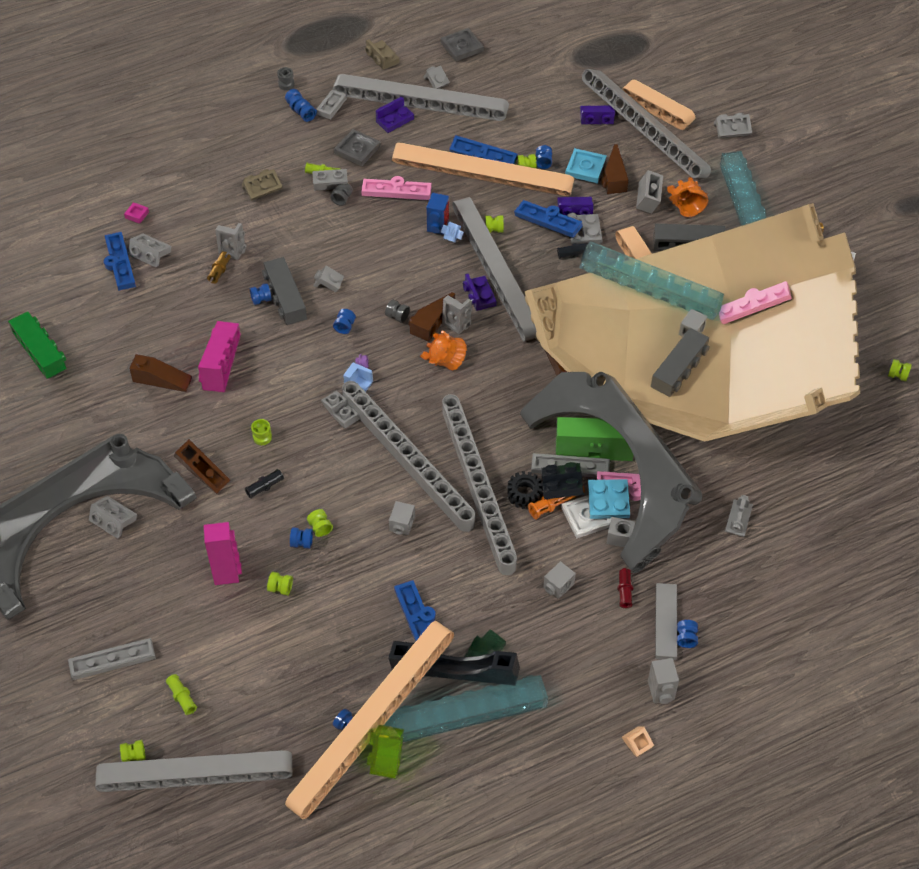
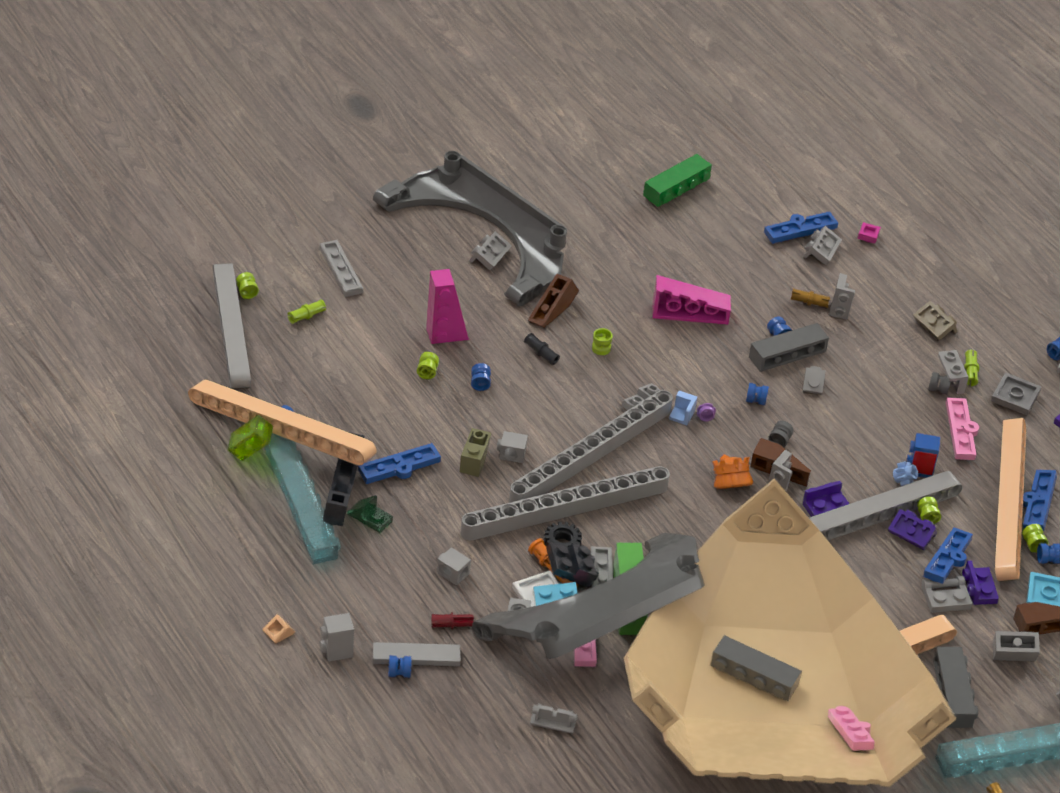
camera: 80 degrees right, 10 degrees down
(157, 373) = (660, 261): reddish brown slope -> none
(320, 524) = (501, 388): lime wheel -> none
(410, 549) = (475, 452): none -> olive slope
(515, 238) = (912, 529): none -> dark purple bracket
(574, 250) = (909, 583): black pin -> none
(651, 280) = (855, 628): clear light blue brick -> none
(688, 197) = (1016, 682): orange hair -> none
(693, 320) = (814, 682): light grey brick -> none

